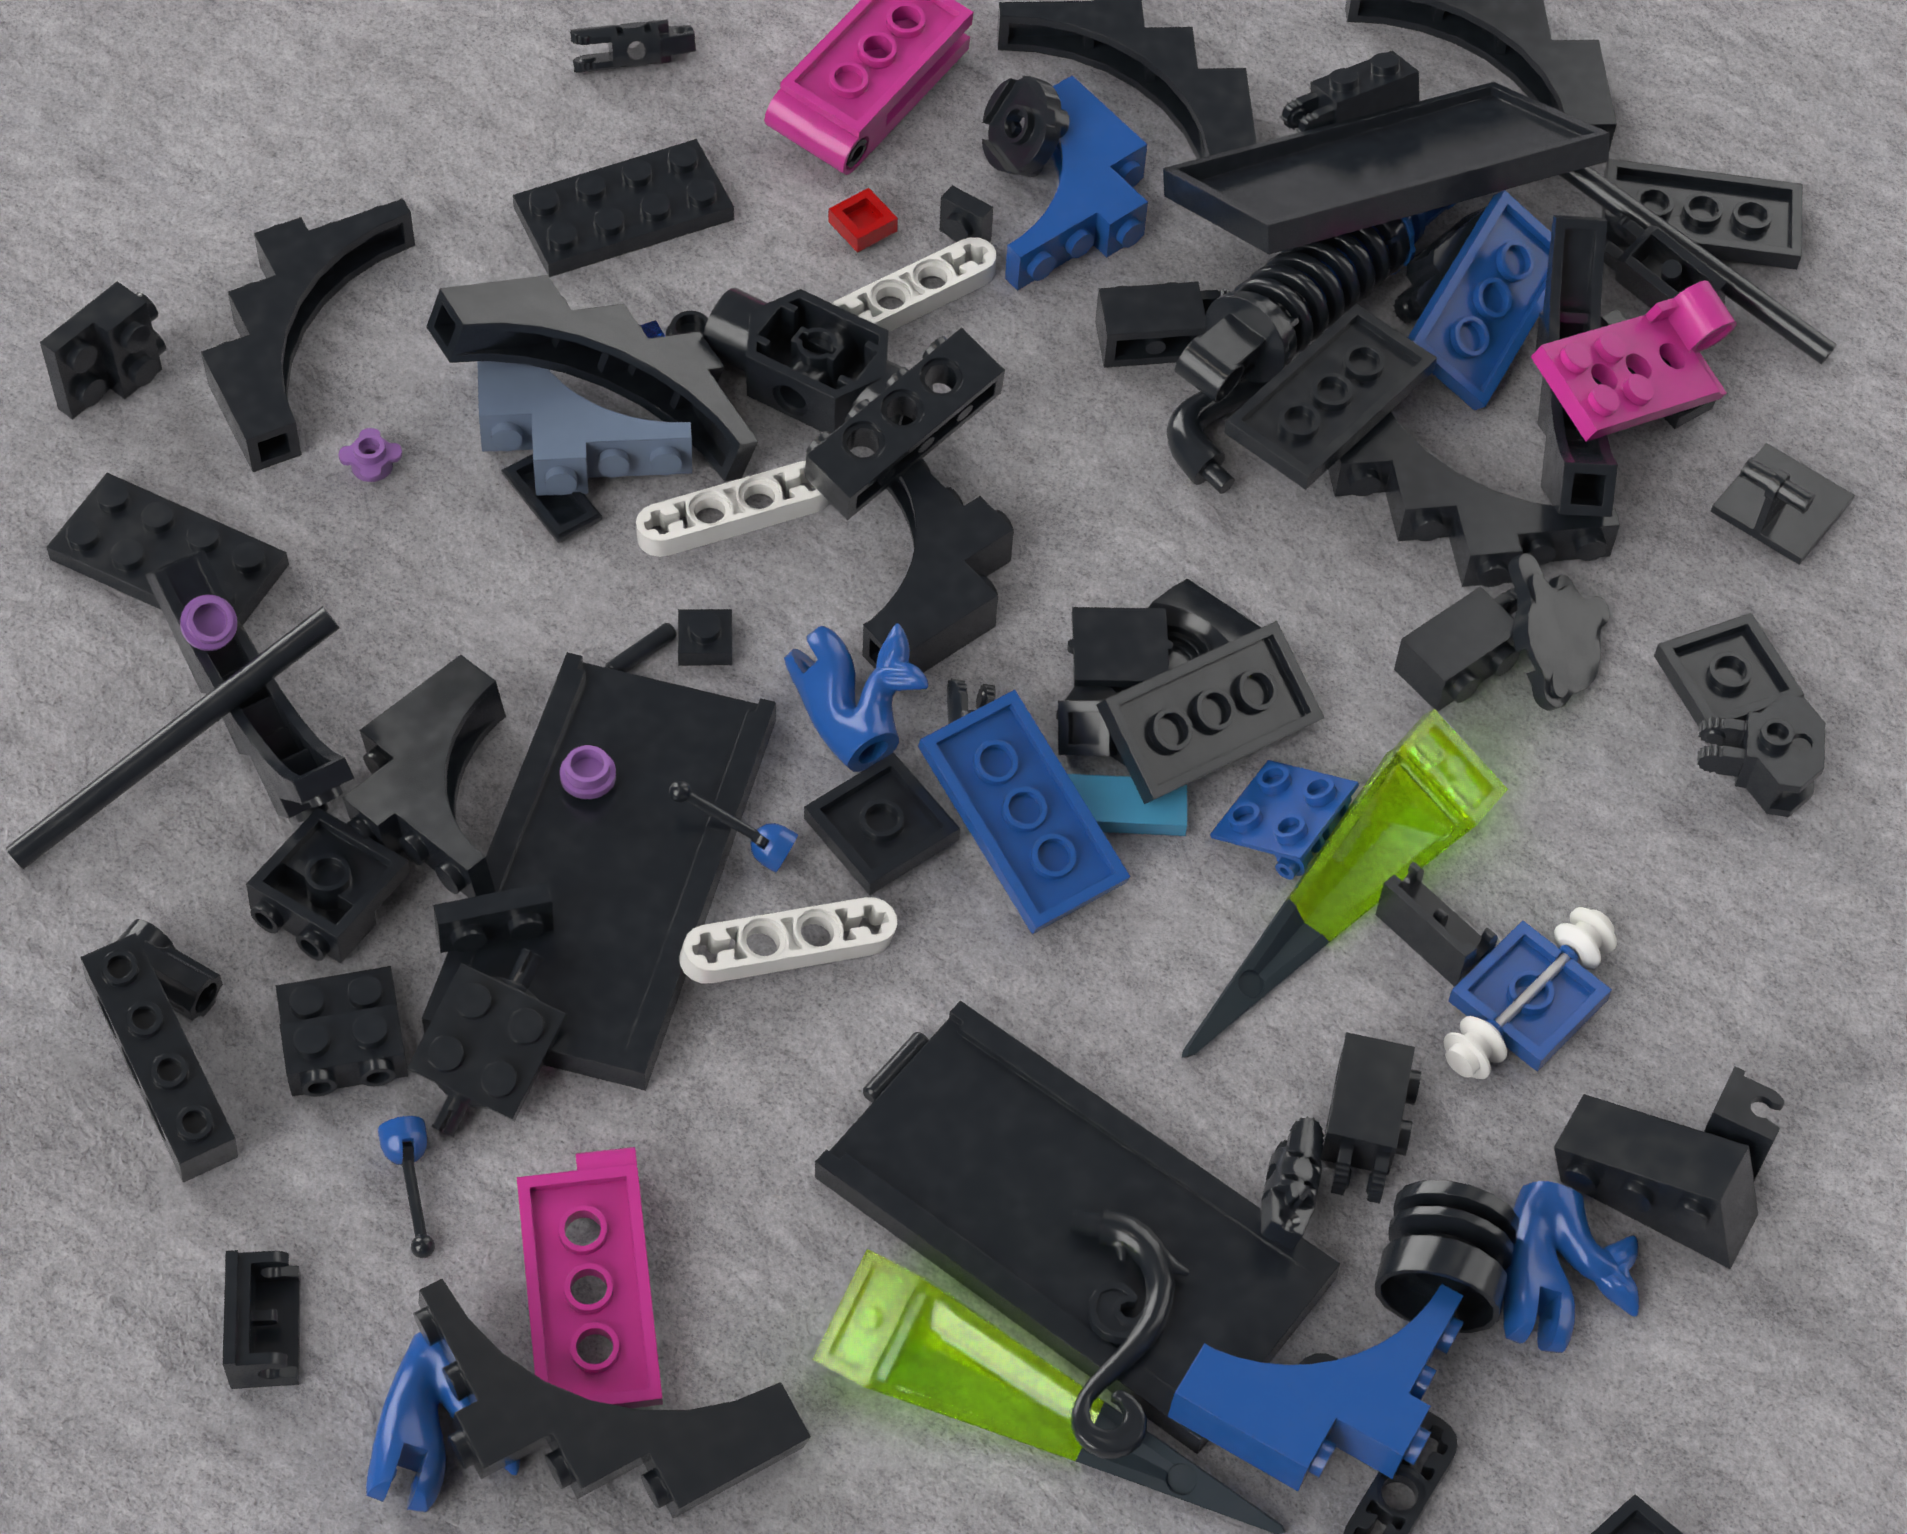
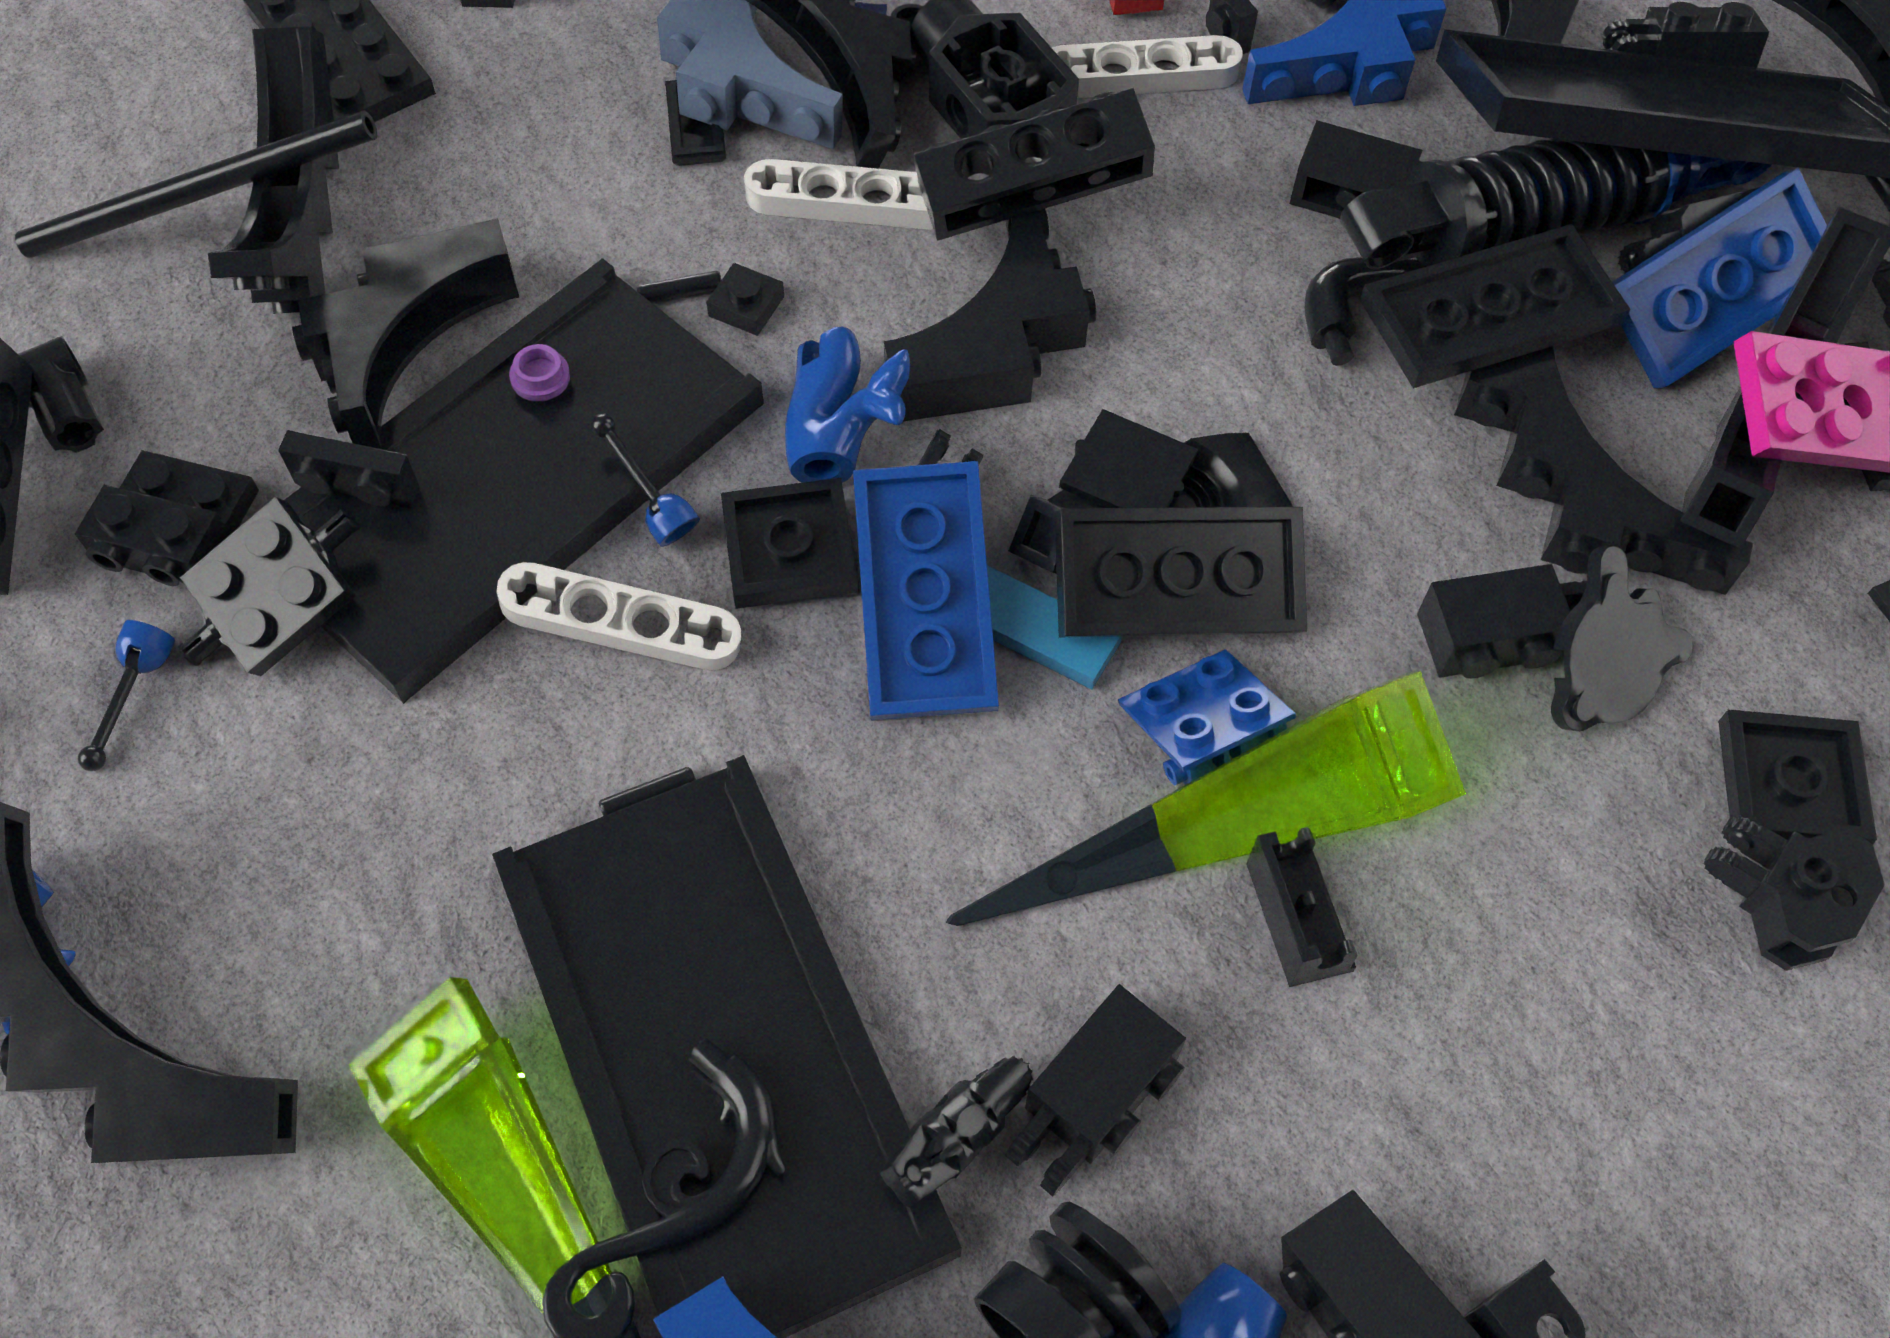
camera: 30 degrees right, 5 degrees up
(208, 622) = (276, 93): medium lavender plate -> none
(325, 886) = (240, 377): black plate -> none
(370, 466) = (562, 27): medium lavender plate -> none
(609, 1193) = (270, 801): dark pink hinge -> none
(1530, 994) = (1364, 1037): blue plate -> none

